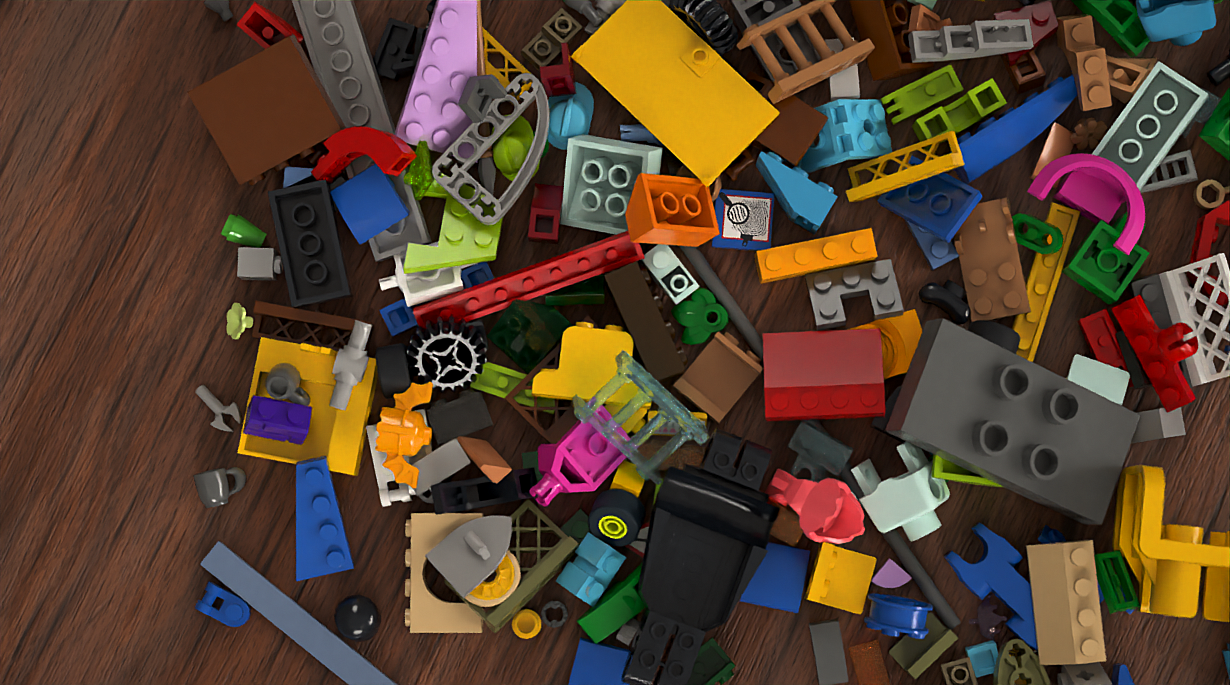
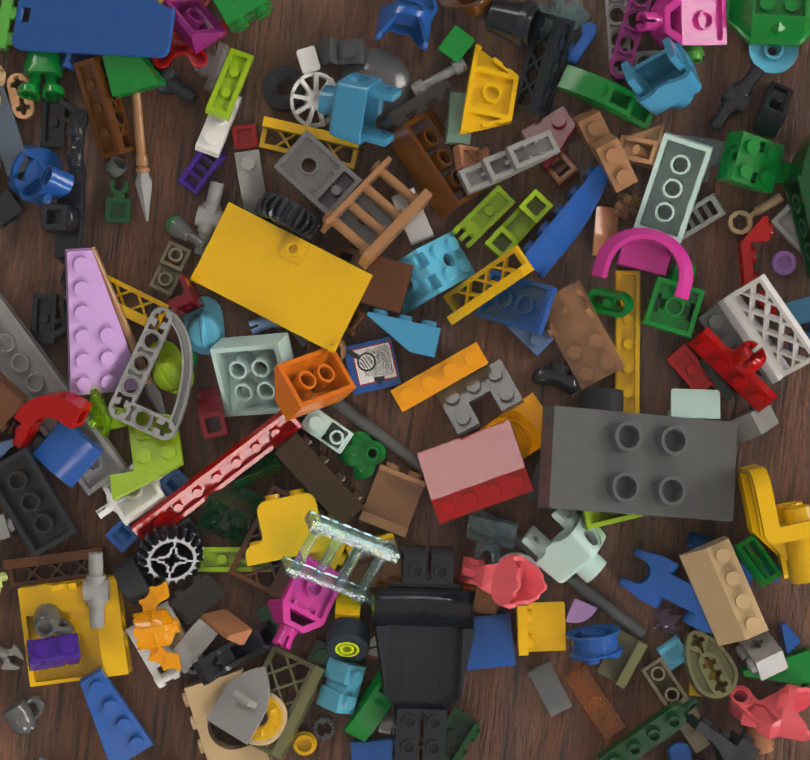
camera: 15 degrees left, 5 degrees up
(479, 95) = (126, 340): dark grey bracket -> none

